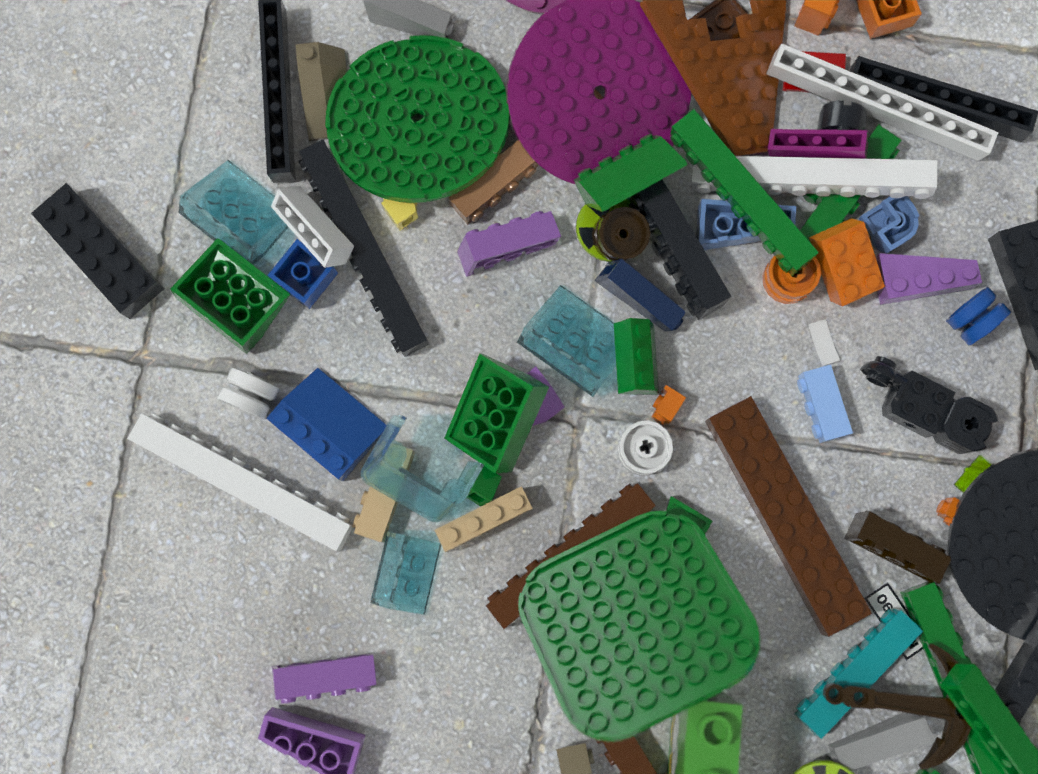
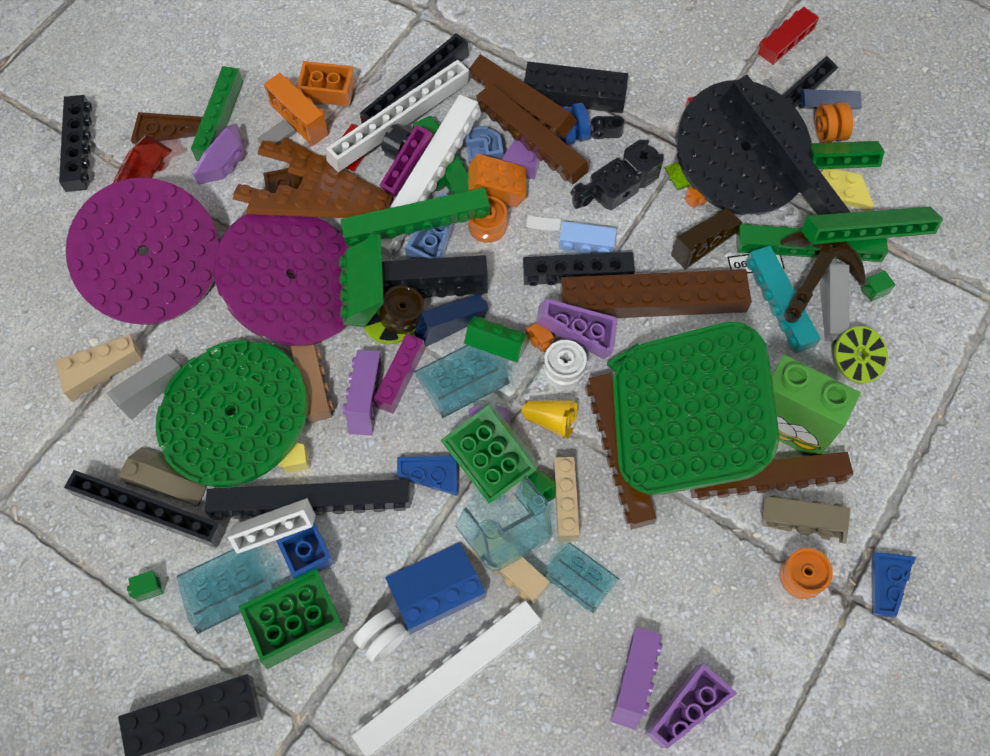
camera: 70 degrees left, 15 degrees down
(202, 135) = (144, 586): none -> green brick
(450, 358) = (430, 471): none -> blue wing
(547, 270) = (399, 373): none -> magenta brick
(574, 462) = (552, 415): none -> yellow cone
(697, 448) = (585, 327): none -> medium lavender wedge
(779, 396) = (568, 263): none -> black brick
(930, 272) = (532, 134): none -> reddish brown brick
(982, 236) = (536, 104): none -> reddish brown brick
(997, 359) = (609, 127): none -> black piece

